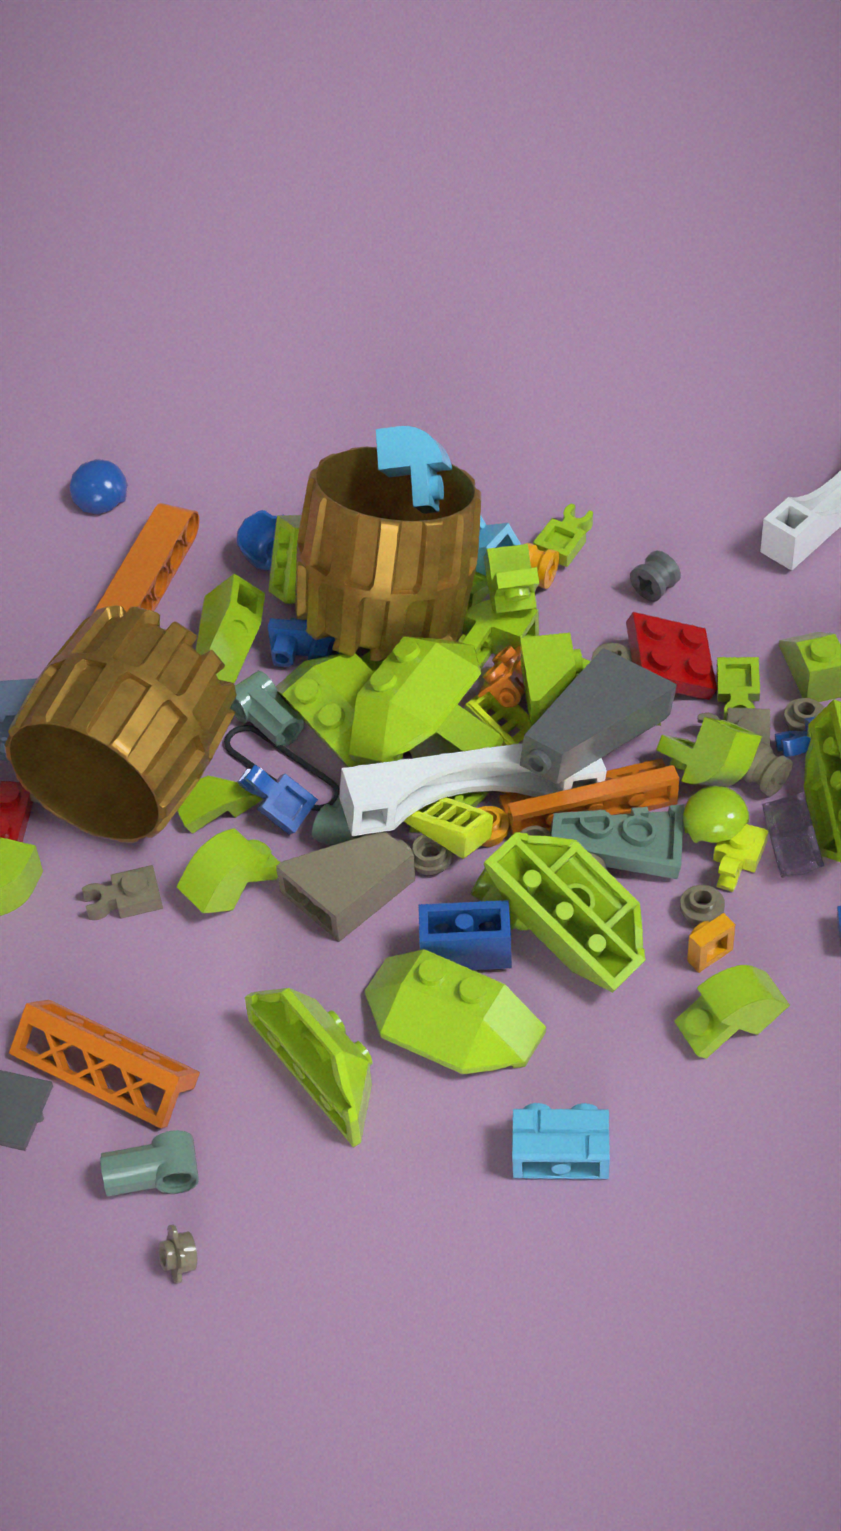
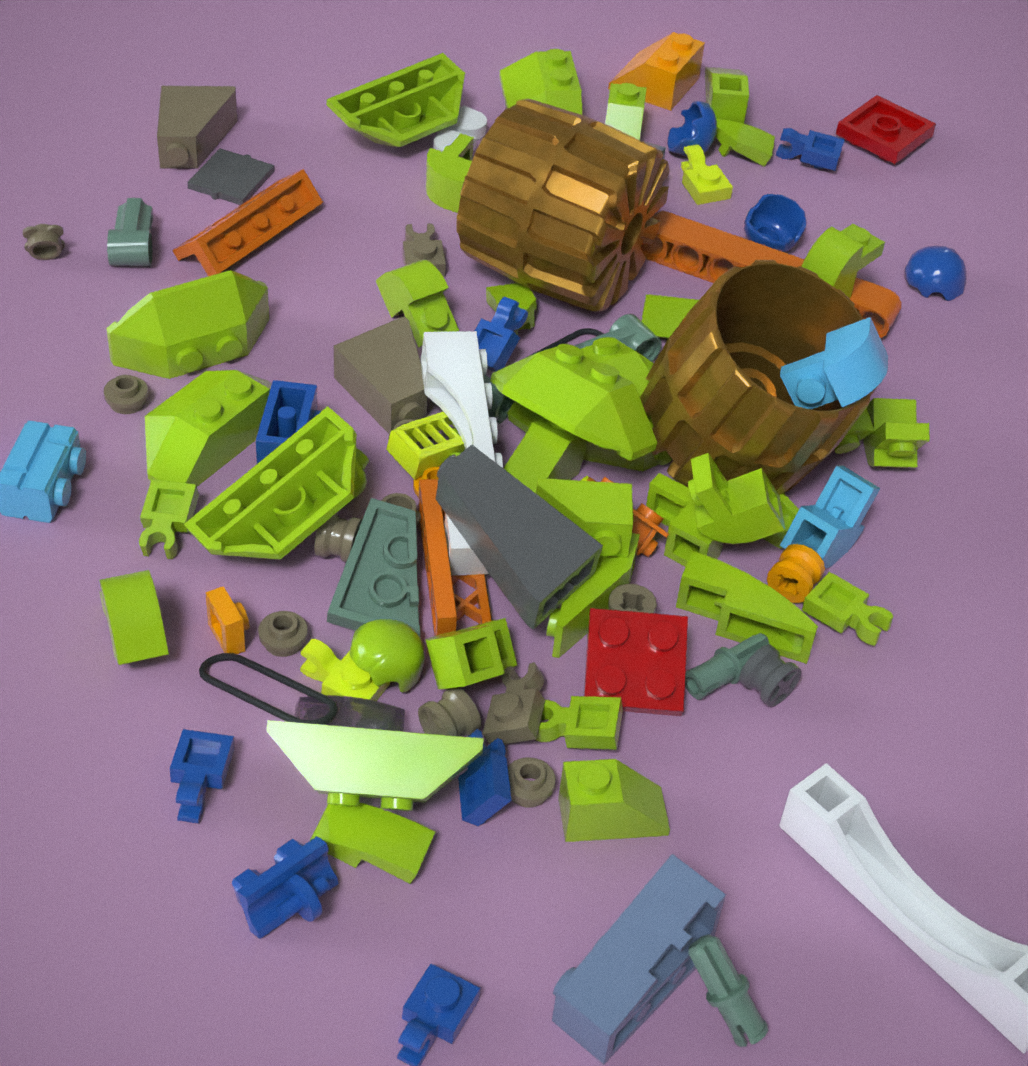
camera: 90 degrees right, 5 degrees down
(51, 599) = (775, 222): none -> blue hair
(166, 523) = (841, 254): none -> lime brick
(416, 1118) = (126, 394): none -> dark tan plate
(583, 1024) = (164, 512): none -> lime plate
(586, 593) = (744, 606): none -> lime slope
(642, 601) = (722, 667): none -> sand green axle
(820, 850) = (274, 675): none -> black piece

